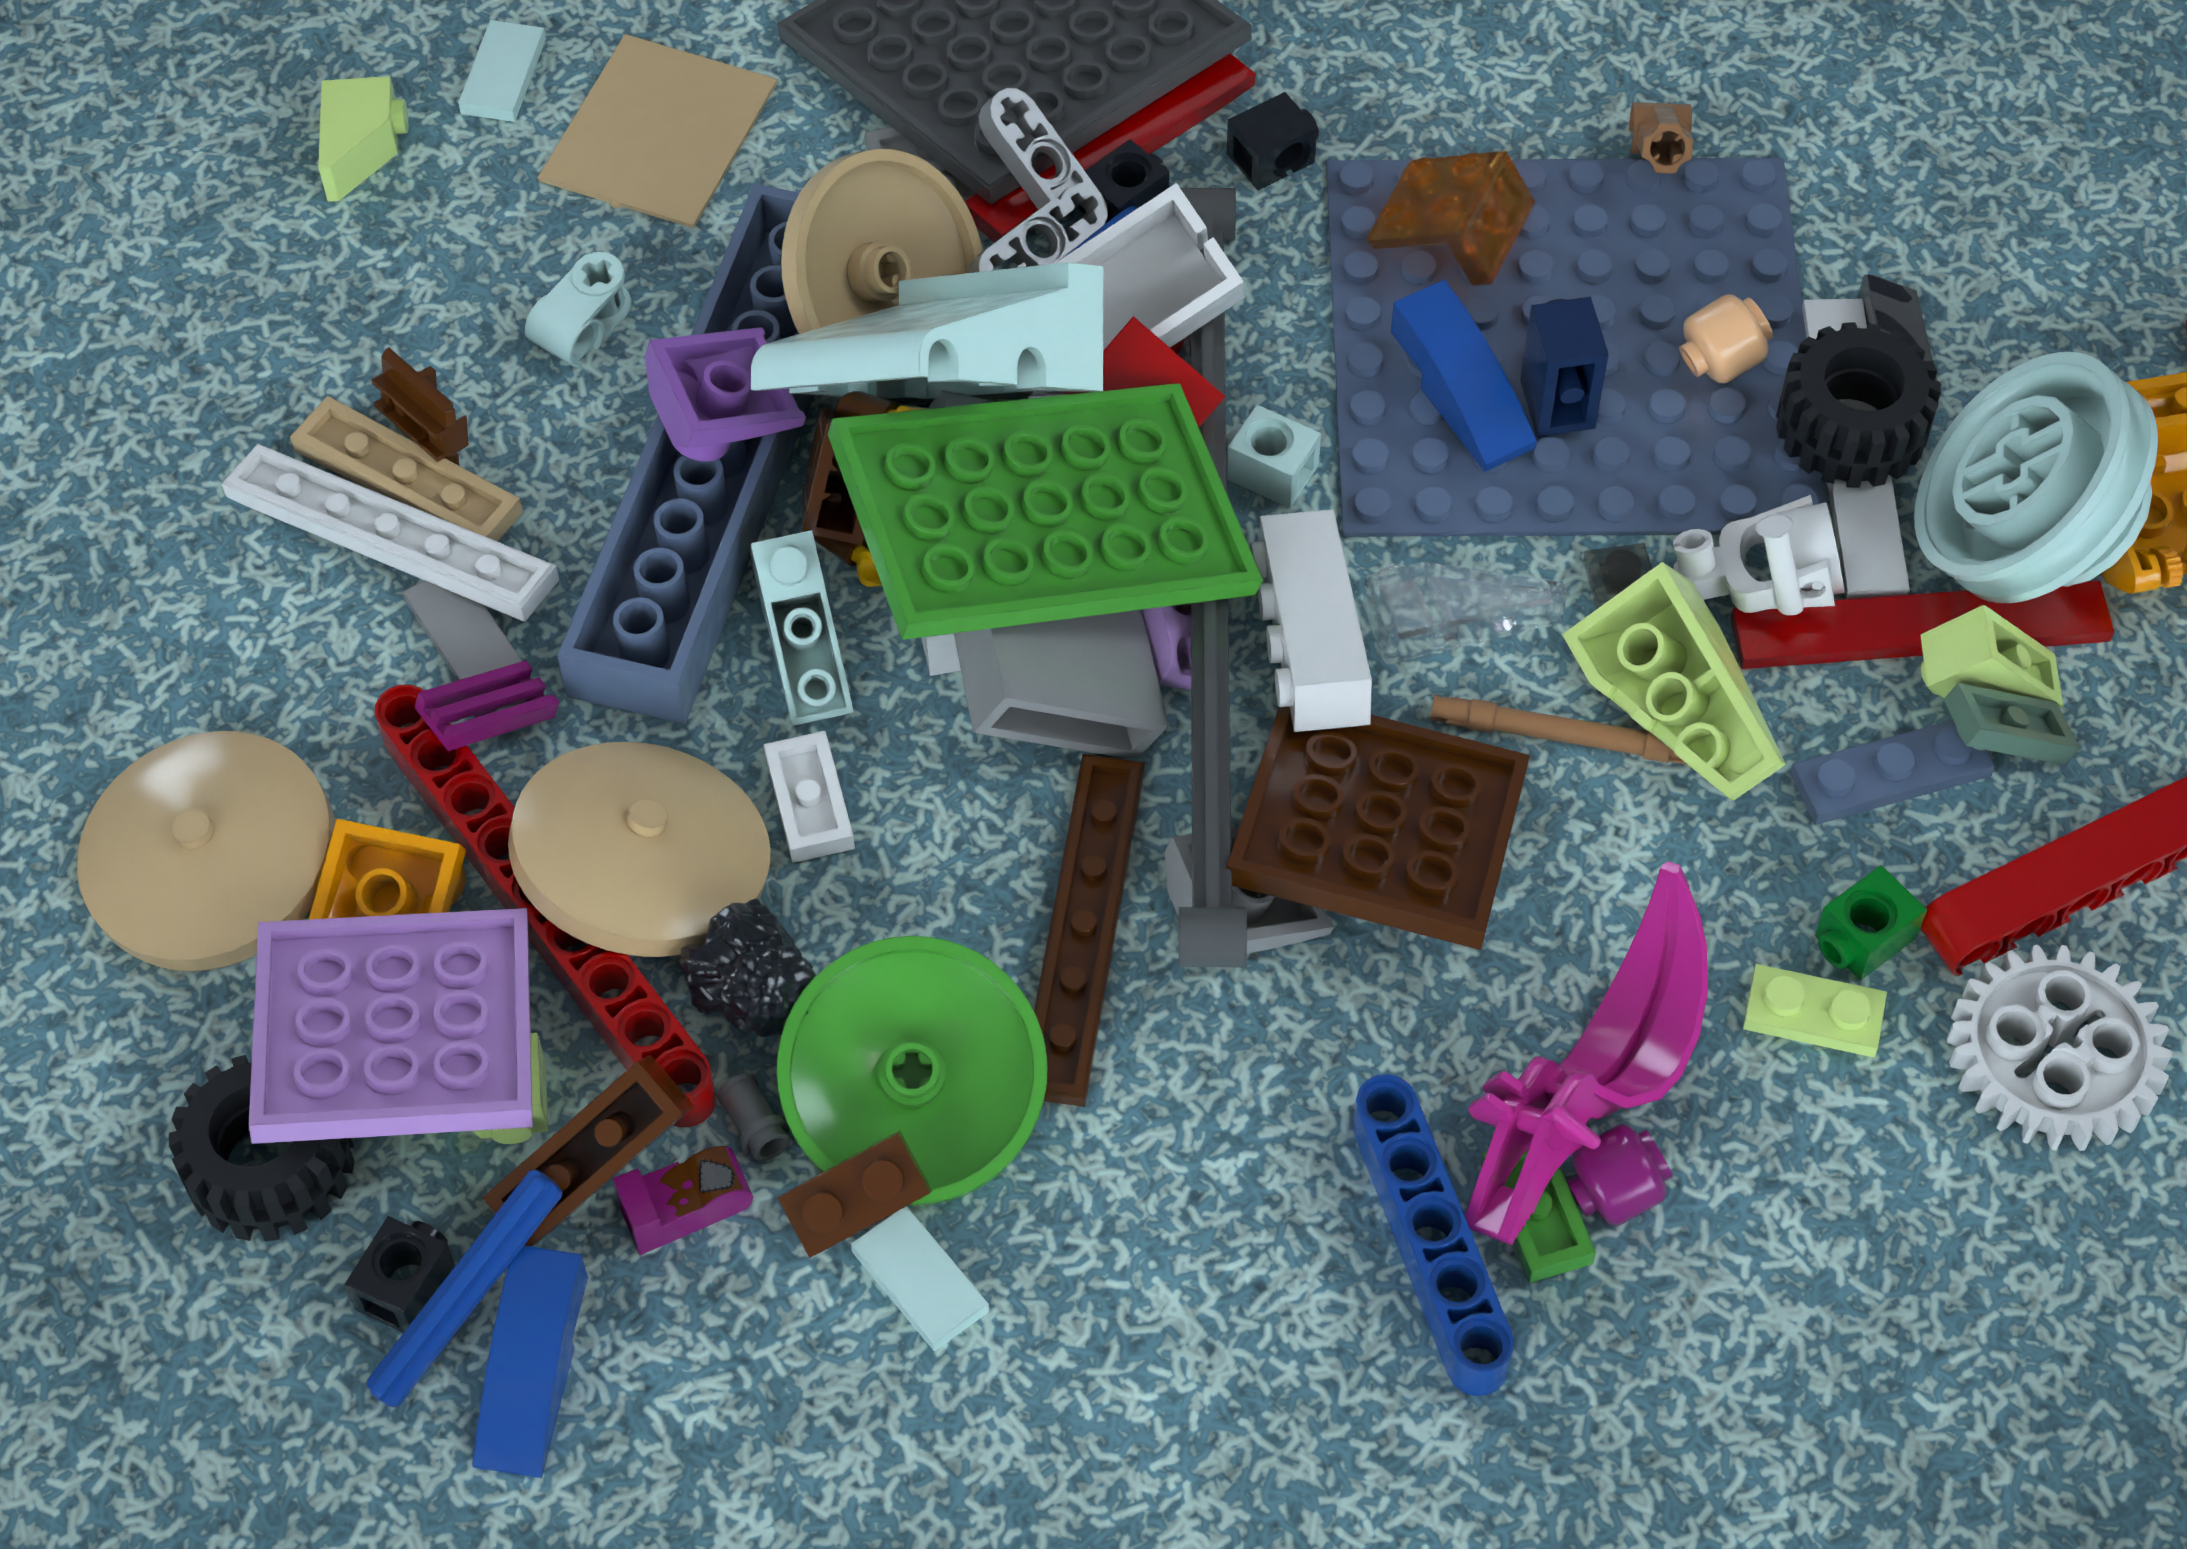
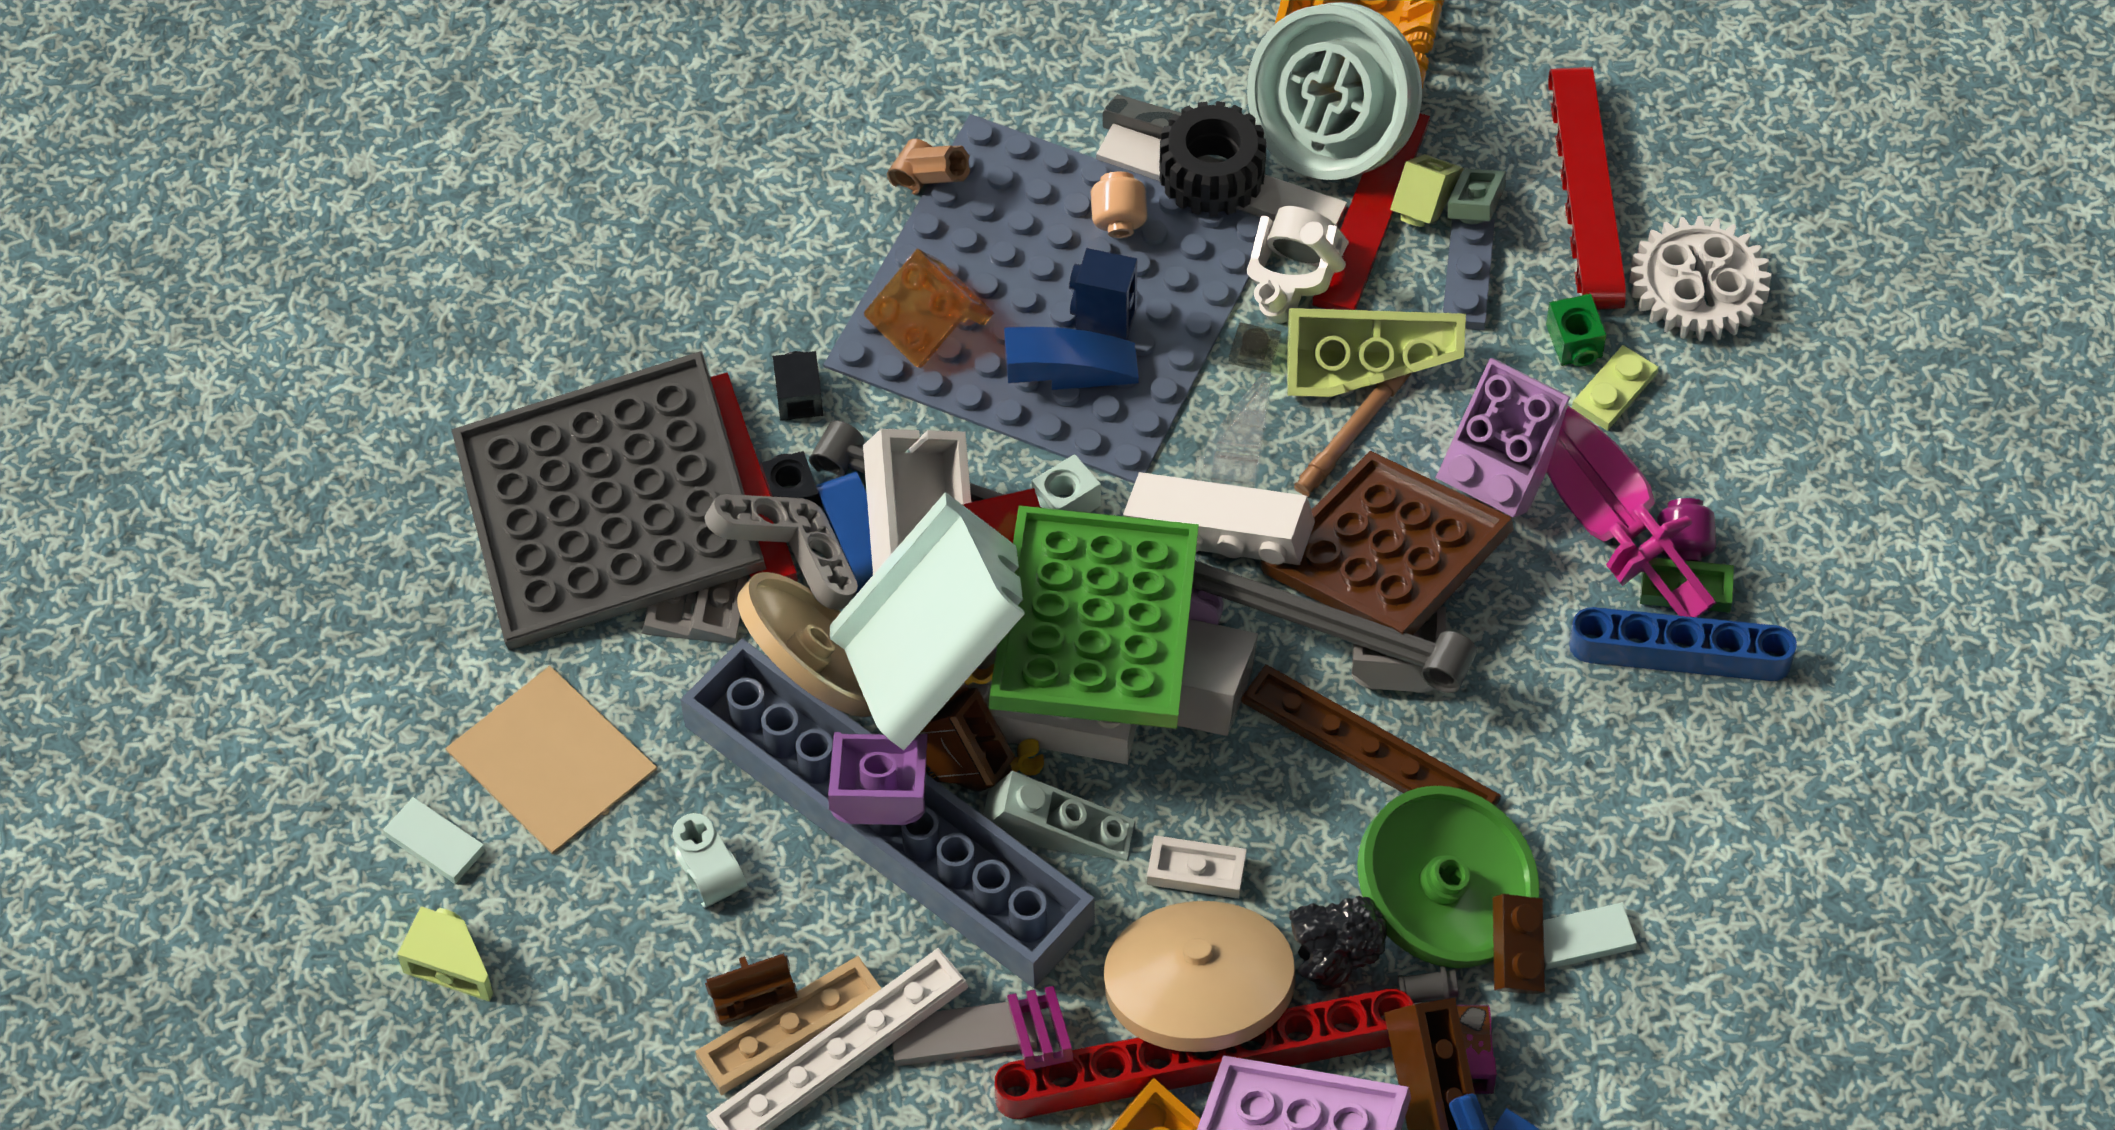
camera: 65 degrees left, 0 degrees up
(1596, 882) = (1505, 439): none -> lavender slope

